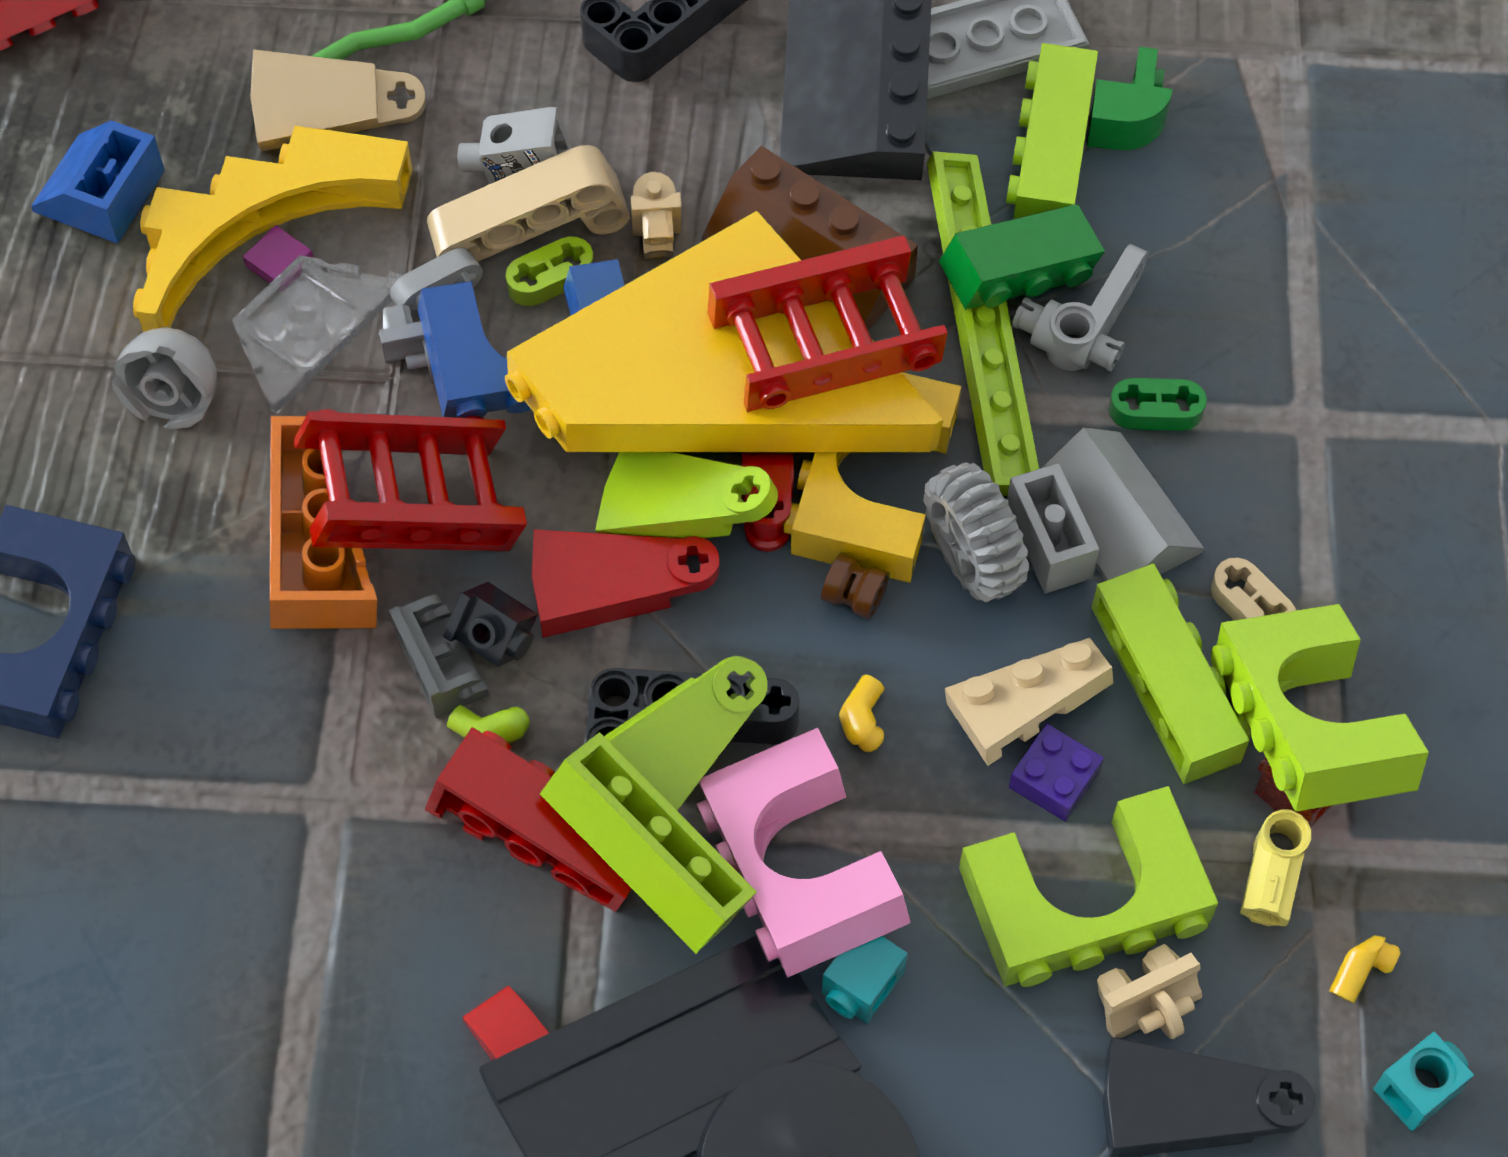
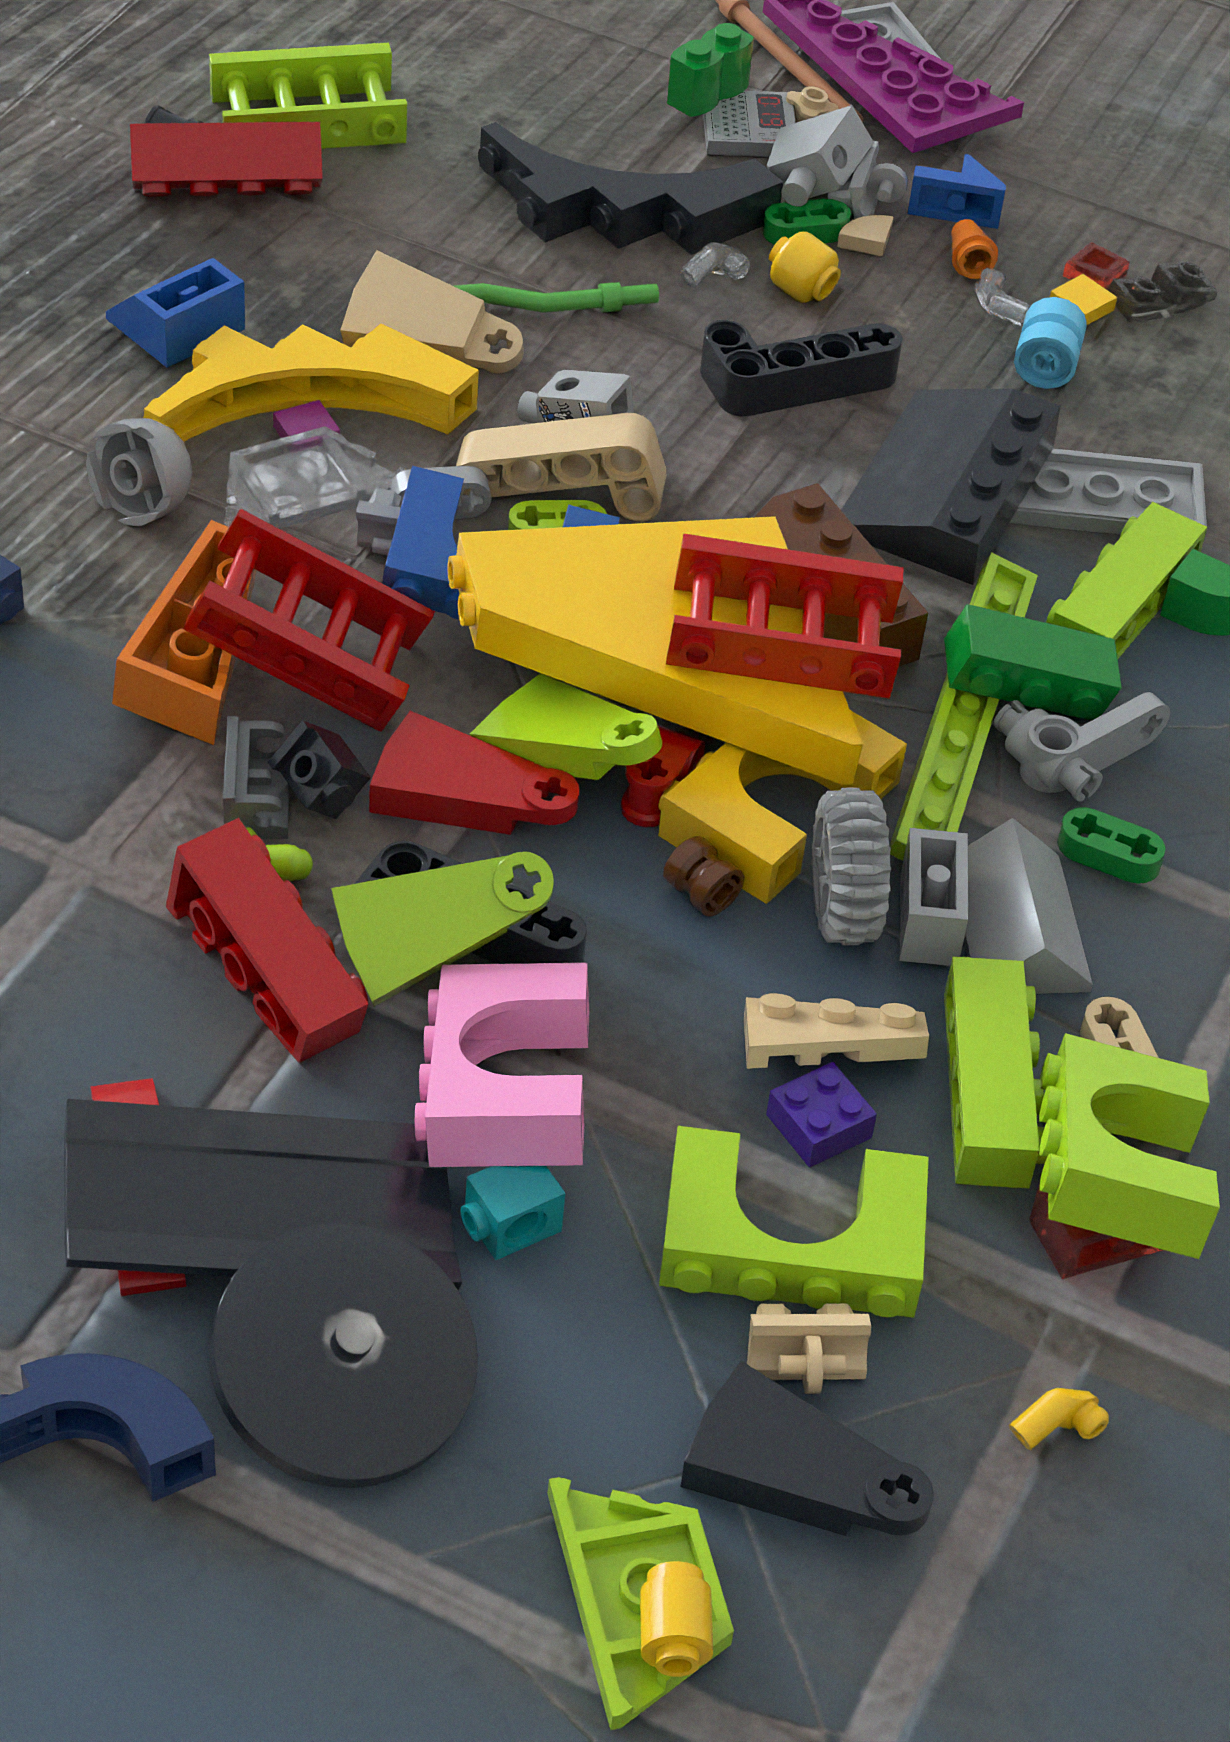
camera: 20 degrees right, 15 degrees down
(647, 842) = (351, 980): lime brick -> none
(656, 214) = (683, 494): tan hips -> none
(857, 714) = (645, 984): yellow arm -> none
(1275, 871) = (1008, 1286): light yellow piece -> none
(1408, 1096) = (1053, 1567): teal brick -> none

